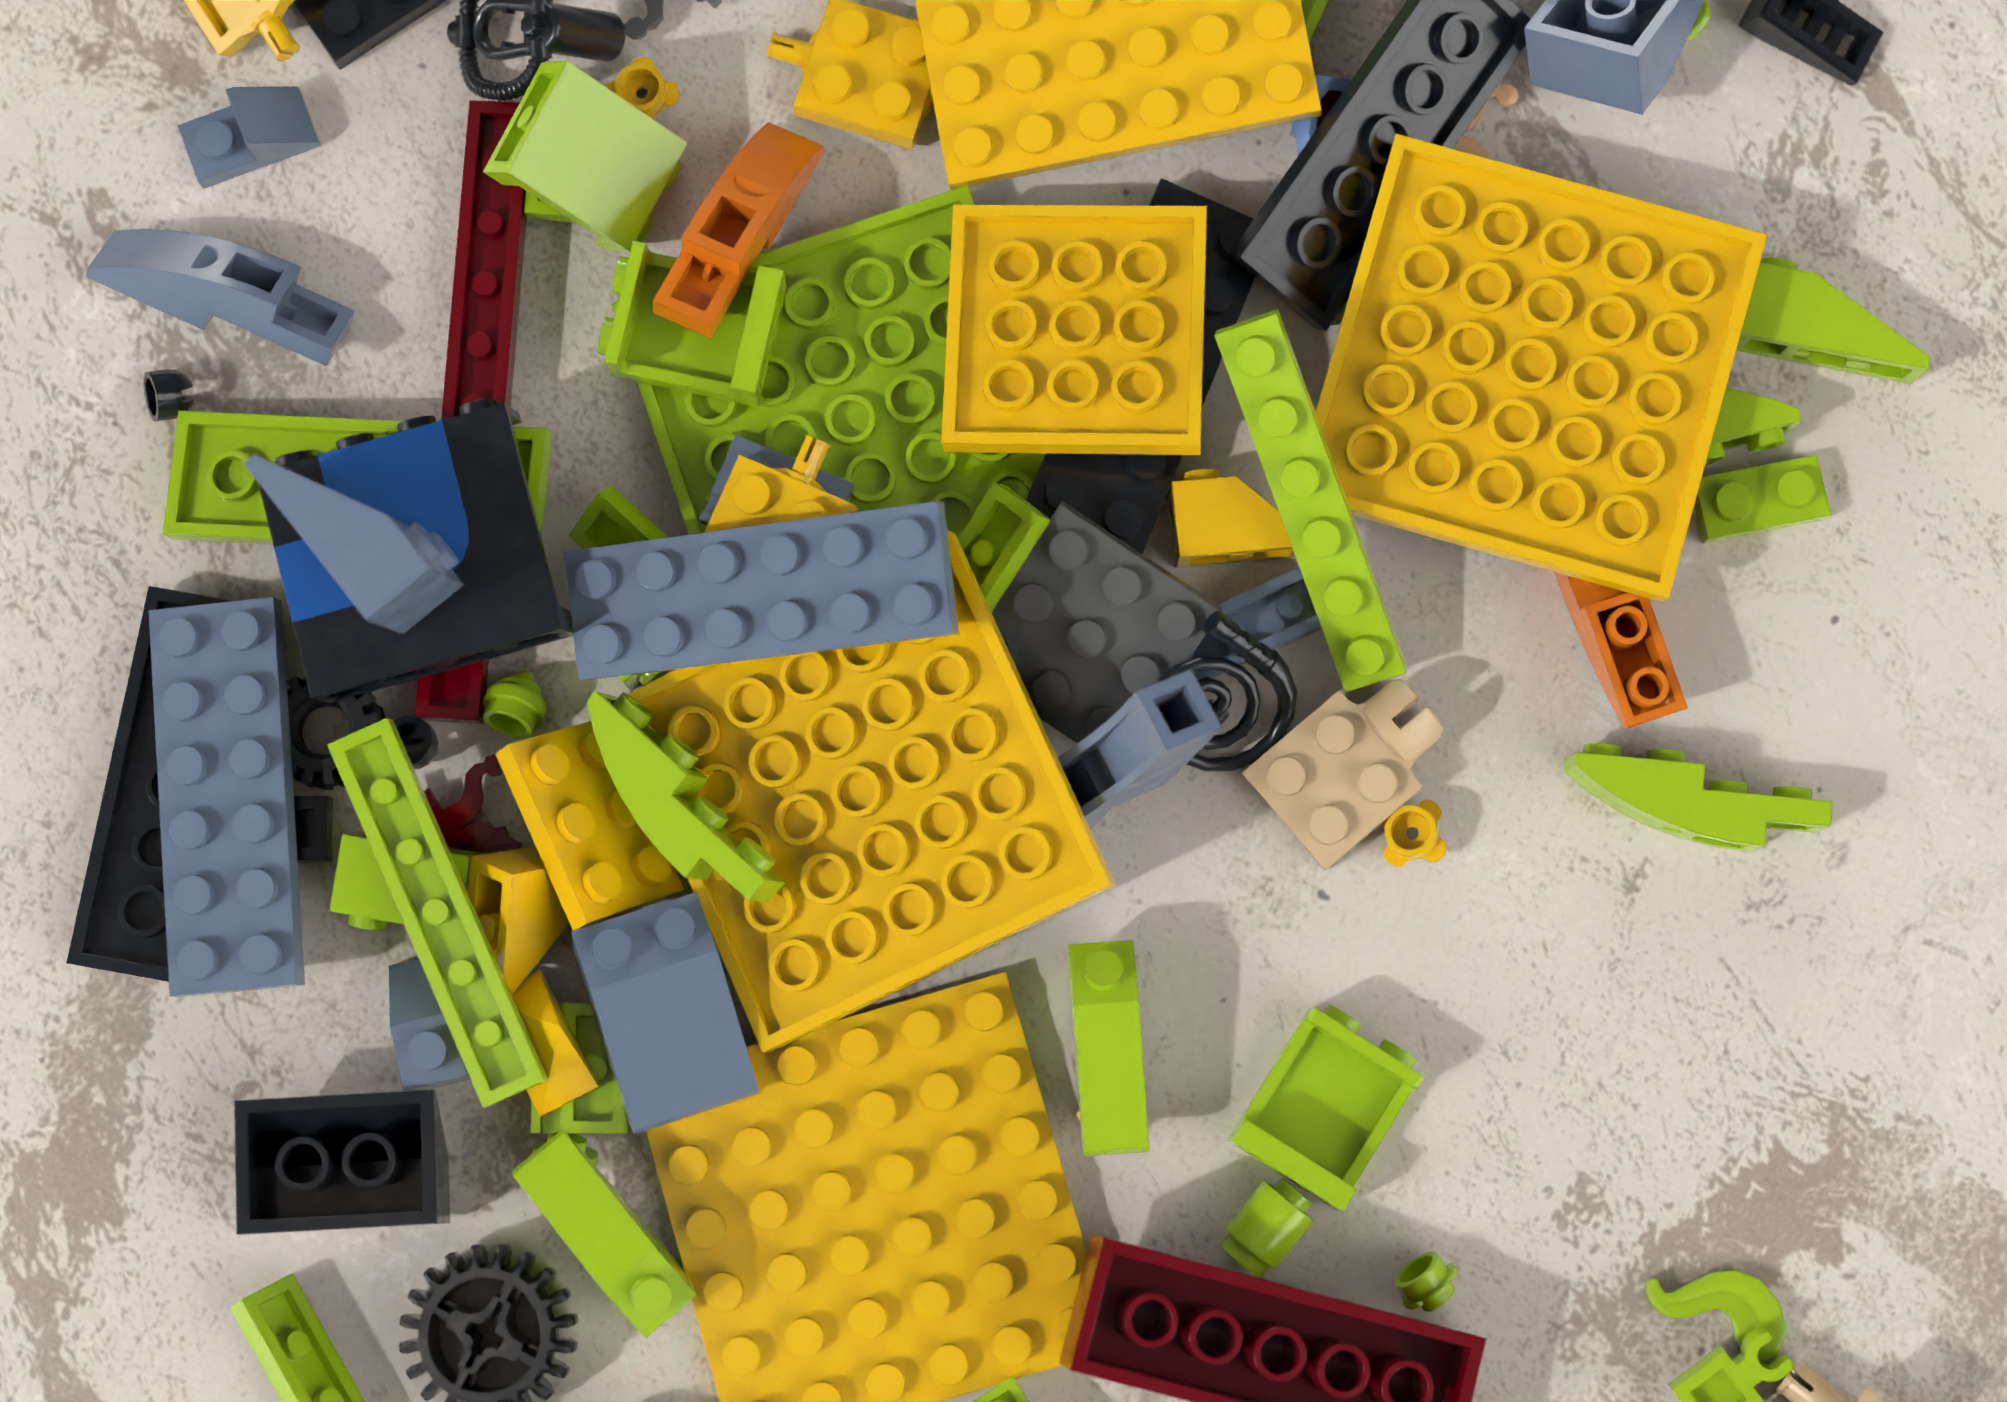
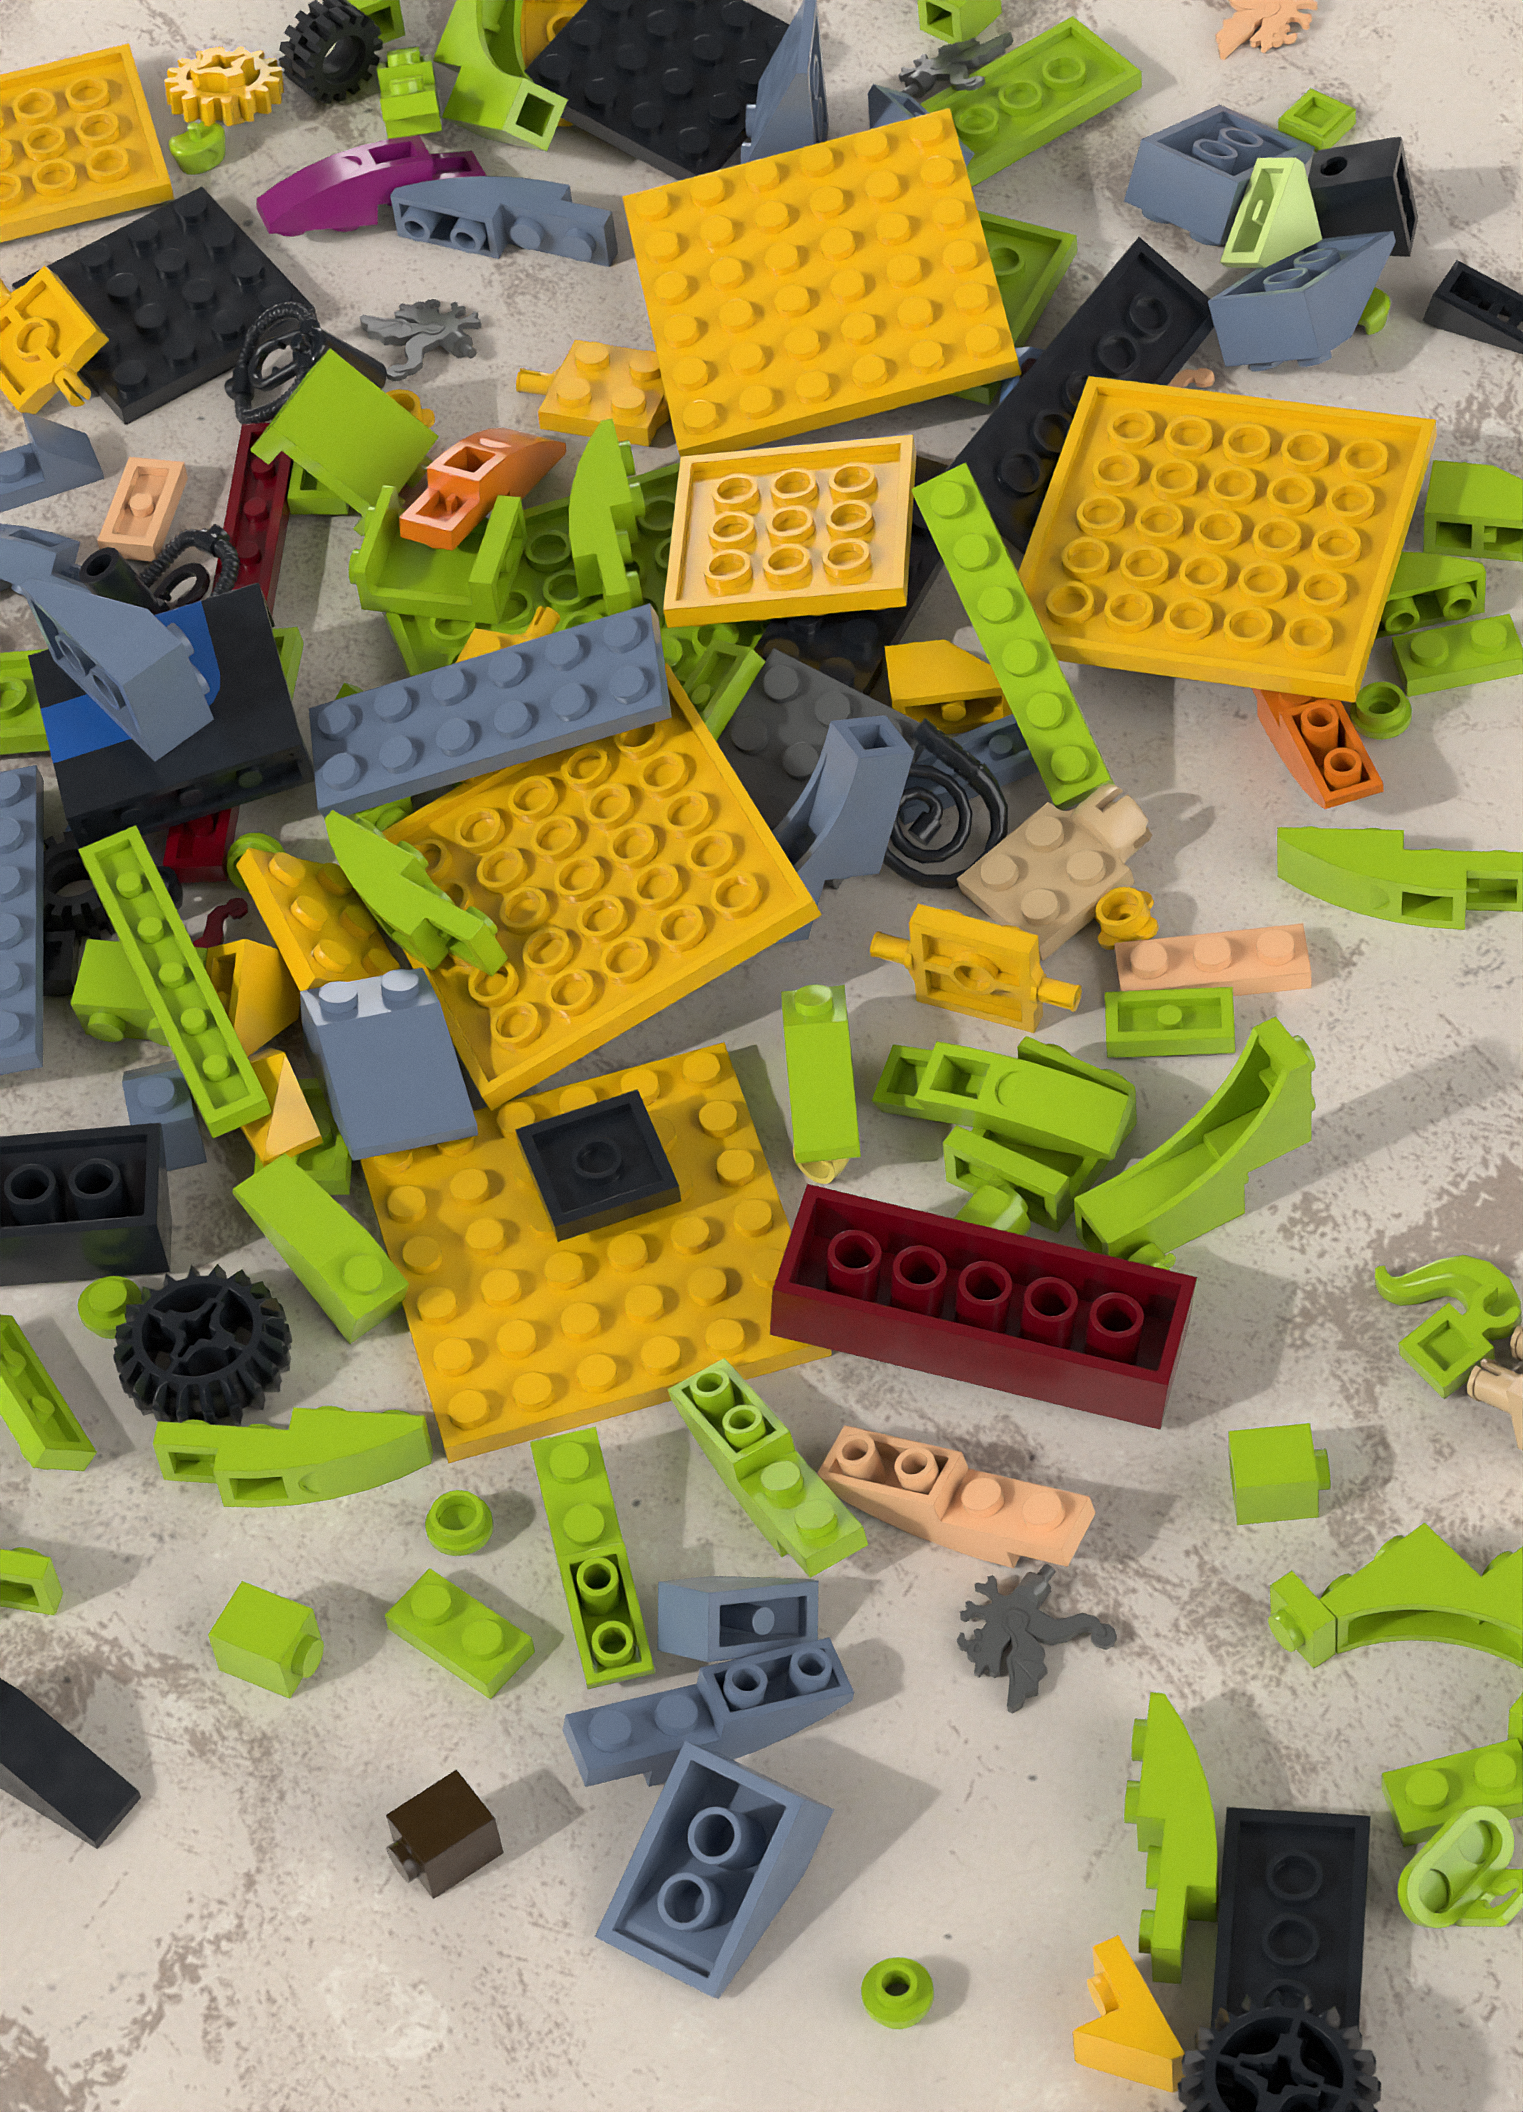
camera: 10 degrees right, 30 degrees down
(366, 208) = (143, 507): none -> light nougat plate
(372, 361) = (111, 577): none -> black piece
(391, 1266) = (105, 1302): none -> lime plate
(868, 278) = (604, 521): none -> lime slope
(883, 1151) = (598, 1165): none -> black plate
(1289, 1082) = (1004, 1095): none -> lime slope
(1291, 925) = (976, 968): none -> yellow plate
(1455, 971) = (1169, 1022): none -> lime plate
(1492, 1180) = (1202, 1169): none -> lime arch
(1498, 892) = (1241, 959): none -> light nougat plate
(1698, 578) = (1381, 711): none -> lime plate

